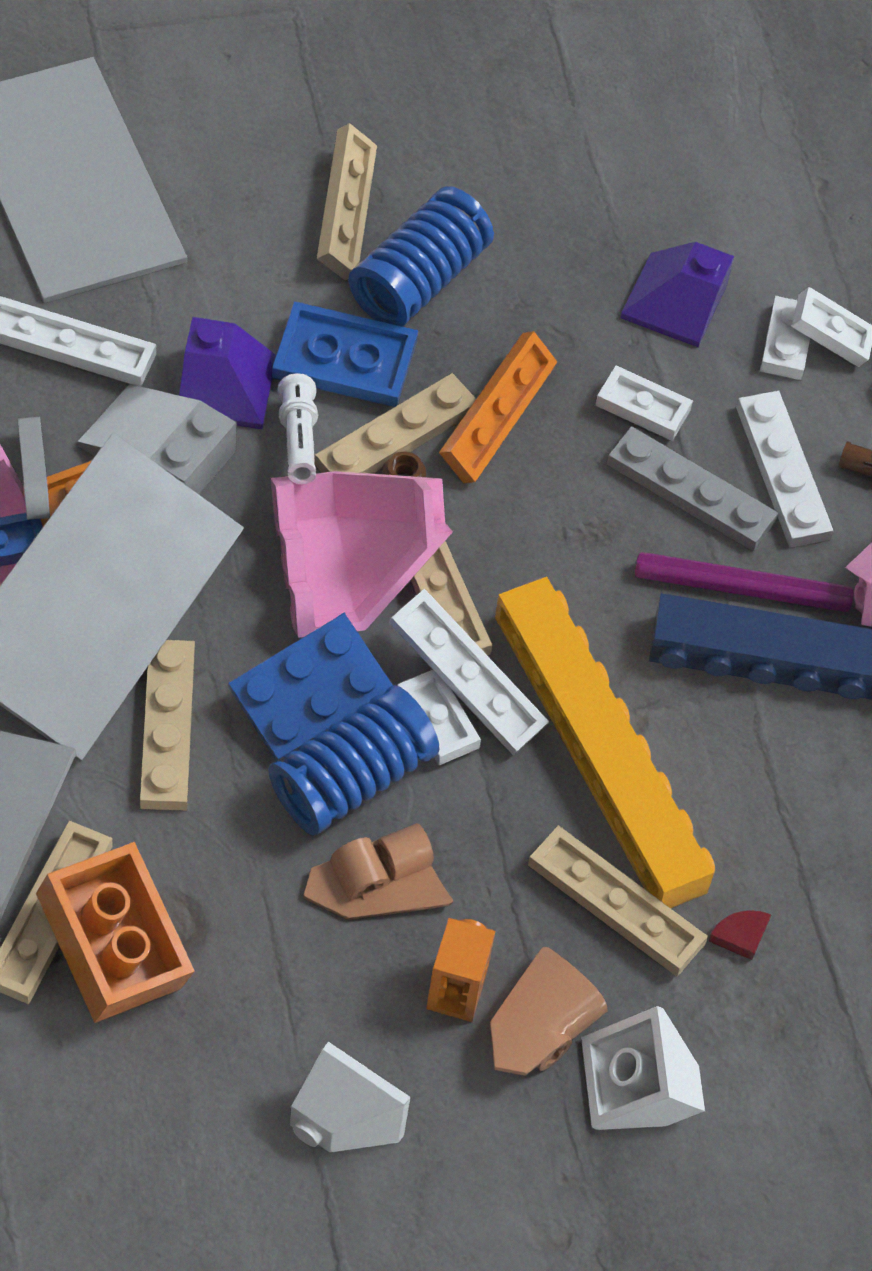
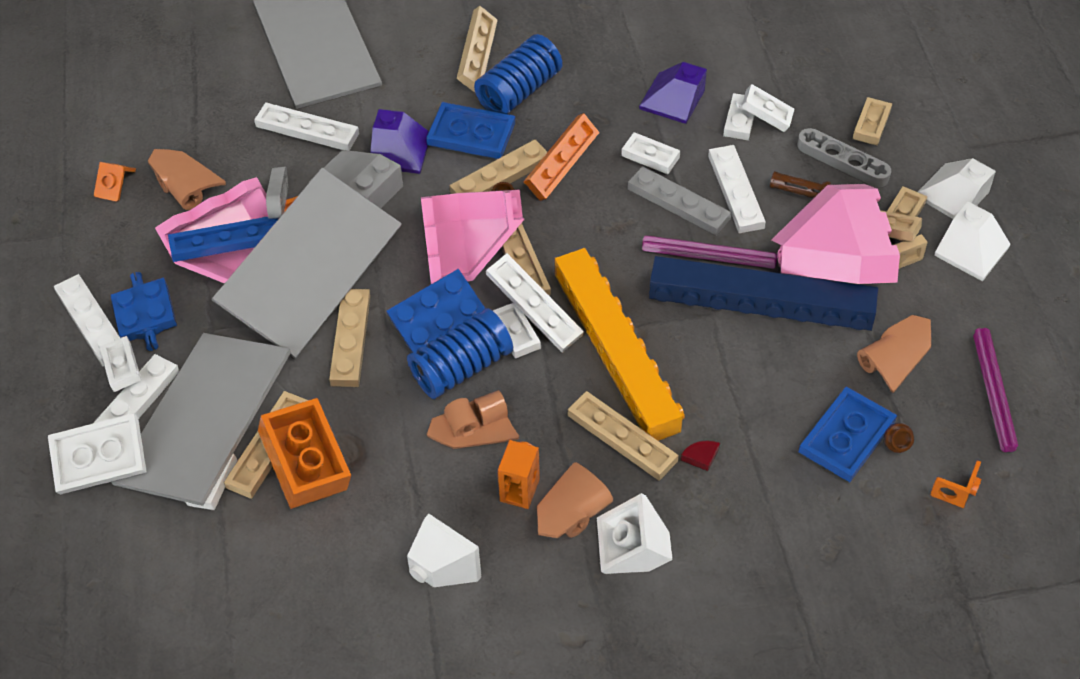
camera: 10 degrees right, 5 degrees down
(300, 460) = (439, 163): white pin -> none

